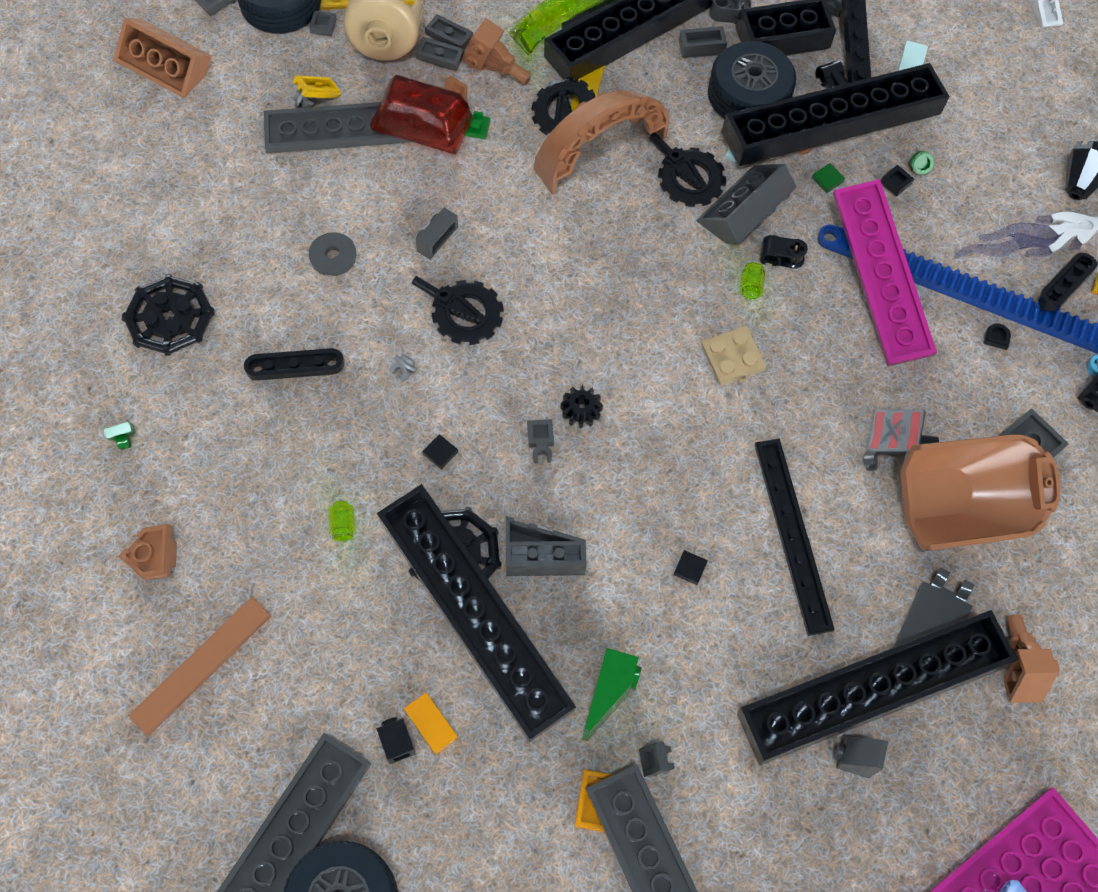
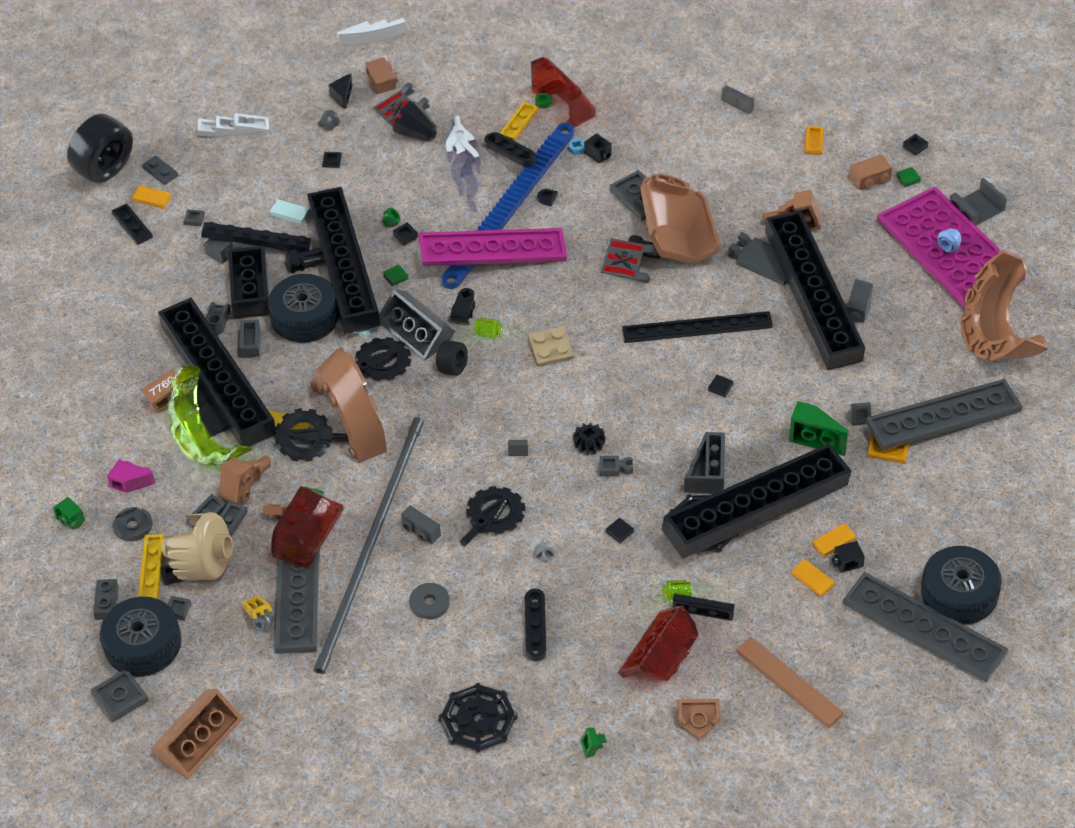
camera: 80 degrees left, 15 degrees down
(240, 500) = (662, 646): none -> clear red windscreen
(313, 553) = (705, 607): none -> black tile
(366, 695) = (813, 578): none -> light orange tile
(559, 326) = (518, 447): none -> dark grey tile
(578, 217) = (325, 656): none -> dark grey piece
(695, 232) = (451, 357): none -> black tyre
(1008, 95) = (332, 159): none -> black tile
(1073, 84) = (329, 120): none -> dark grey arm

